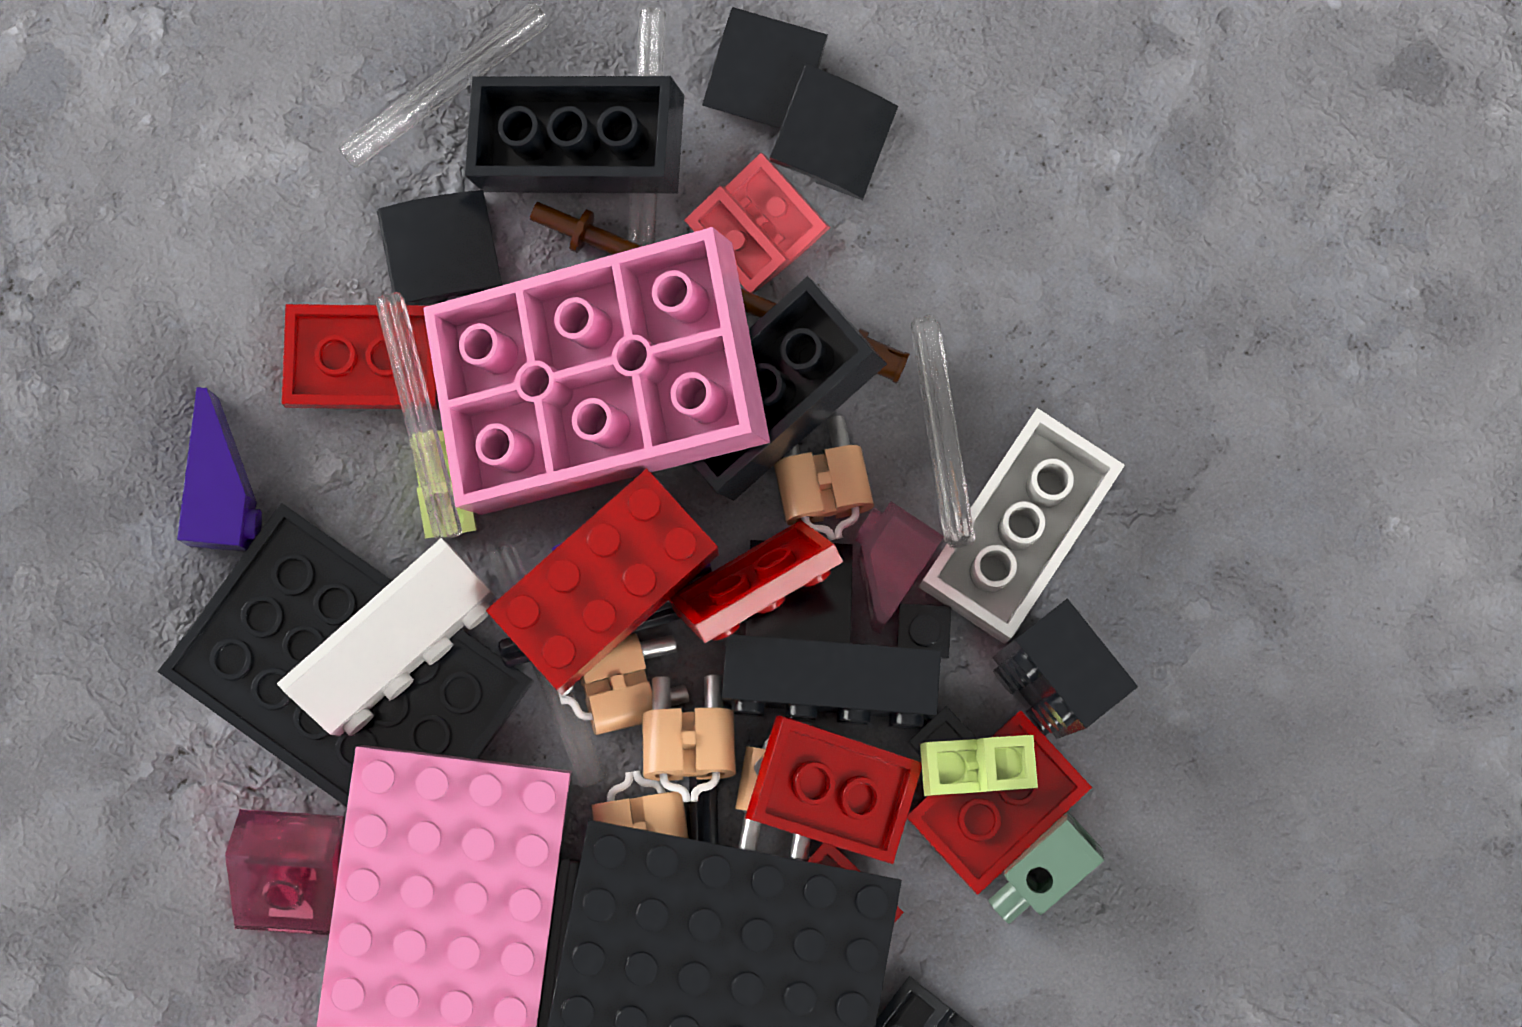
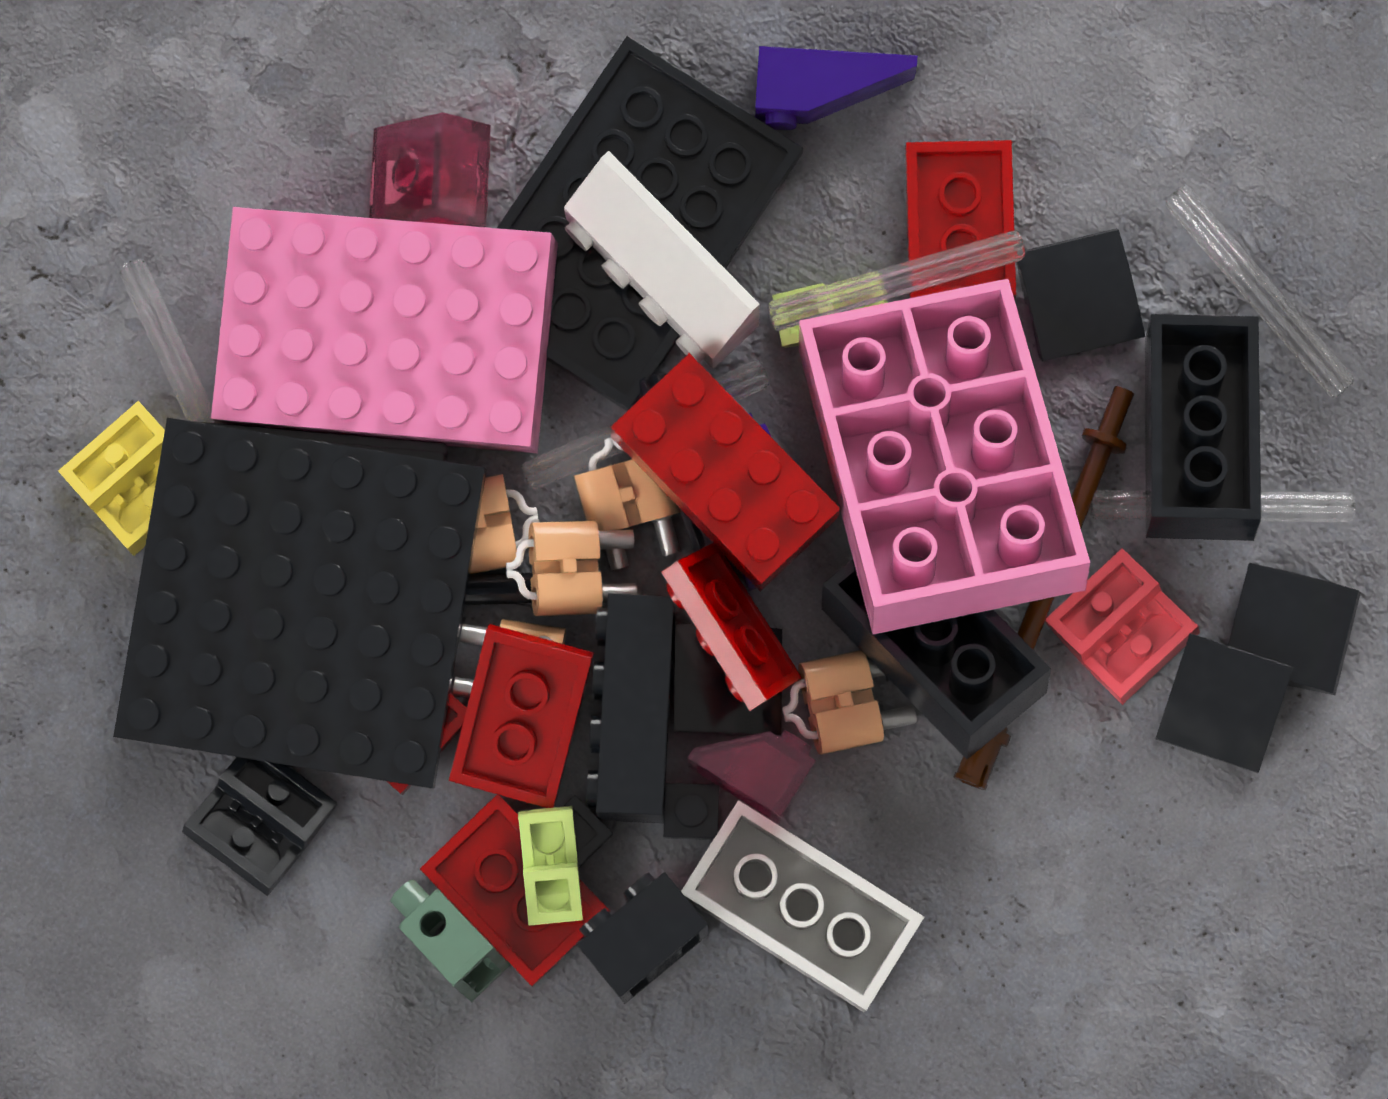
camera: 90 degrees right, 0 degrees up
(942, 432) = (899, 820): clear axle -> none

